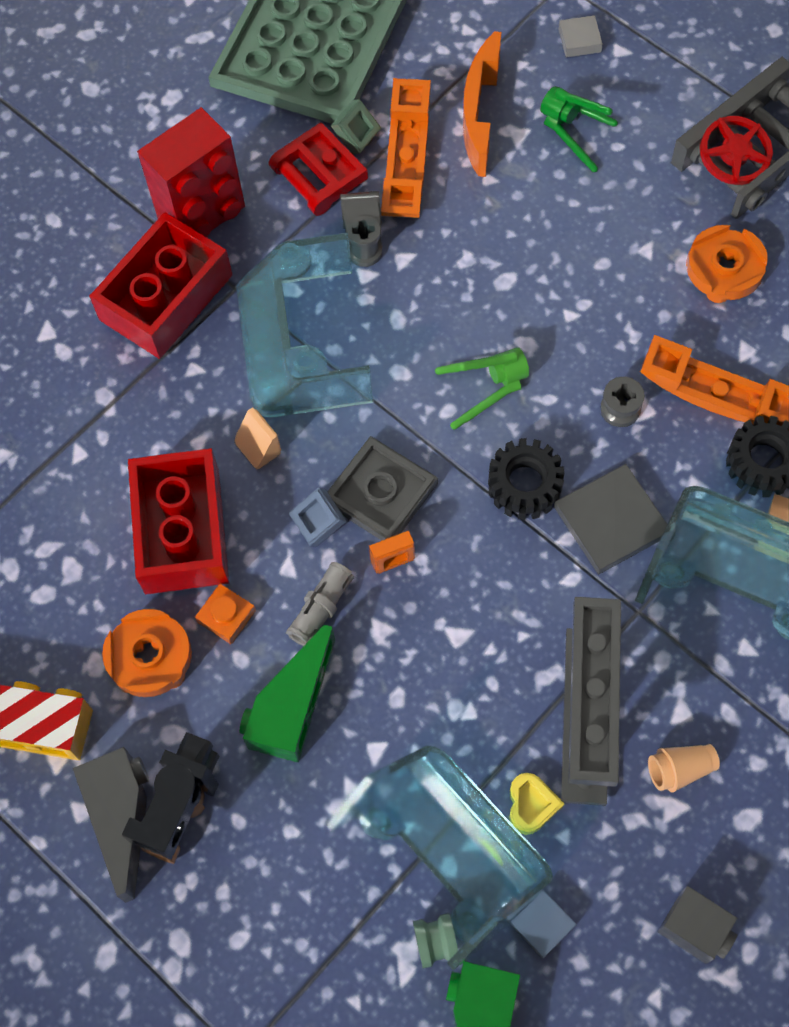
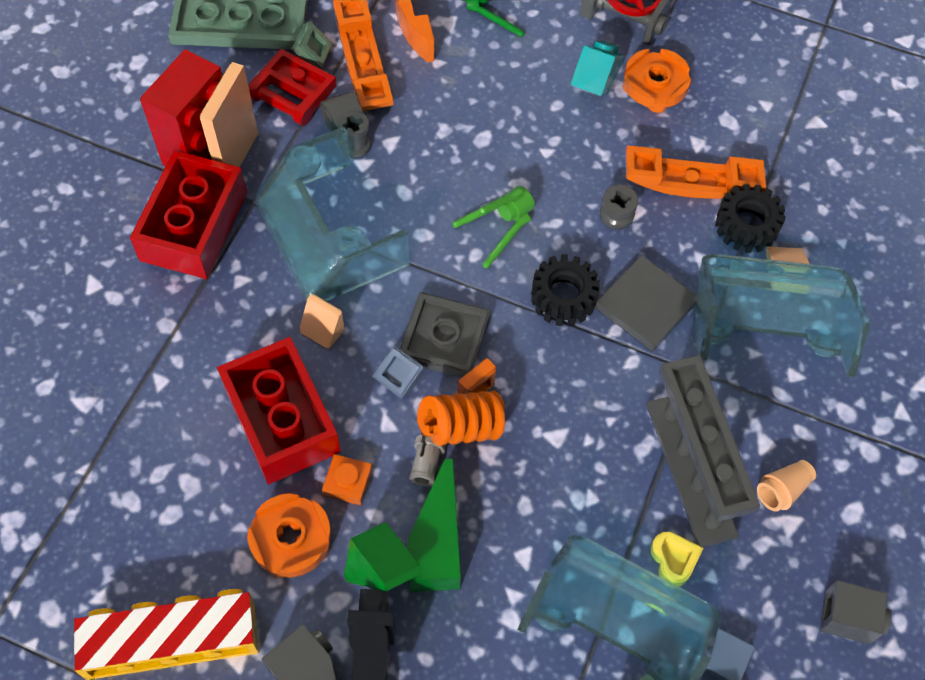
camera: 25 degrees left, 5 degrees down
(218, 708) = (379, 560): none -> green slope
(231, 195) = (230, 118): none -> light nougat tile
(360, 585) = (462, 417): none -> orange piece
(661, 233) = (597, 67): none -> slope

